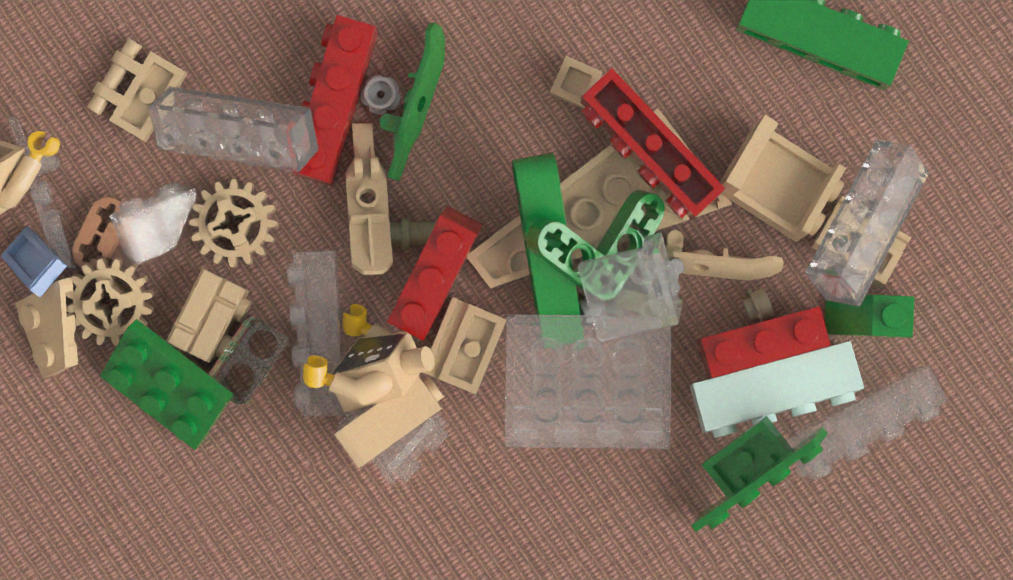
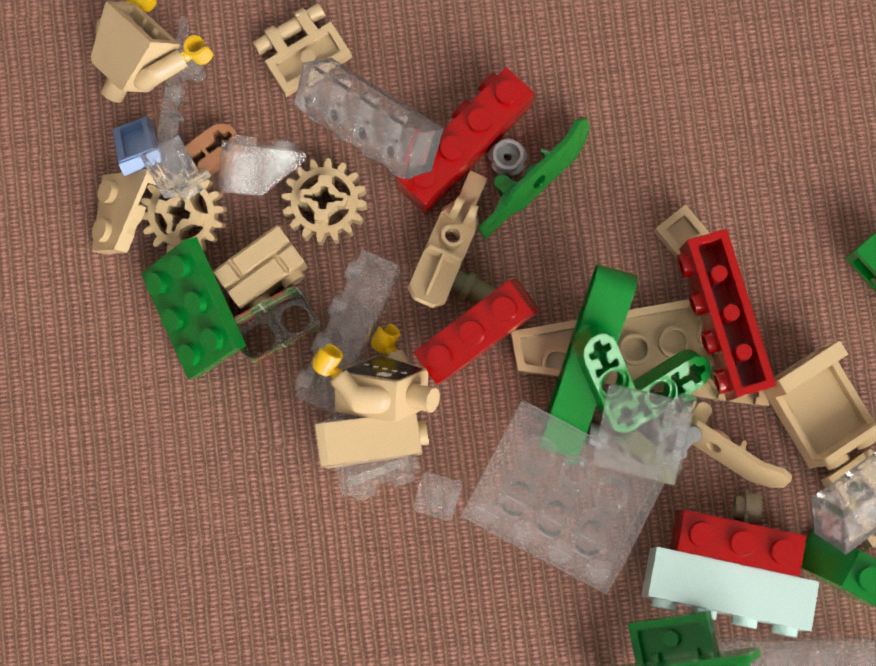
camera: 30 degrees right, 5 degrees down
(84, 268) = (174, 169): none -> clear bracket
(465, 345) = (470, 409): tan plate -> none
(475, 439) = (437, 496): none -> clear bracket

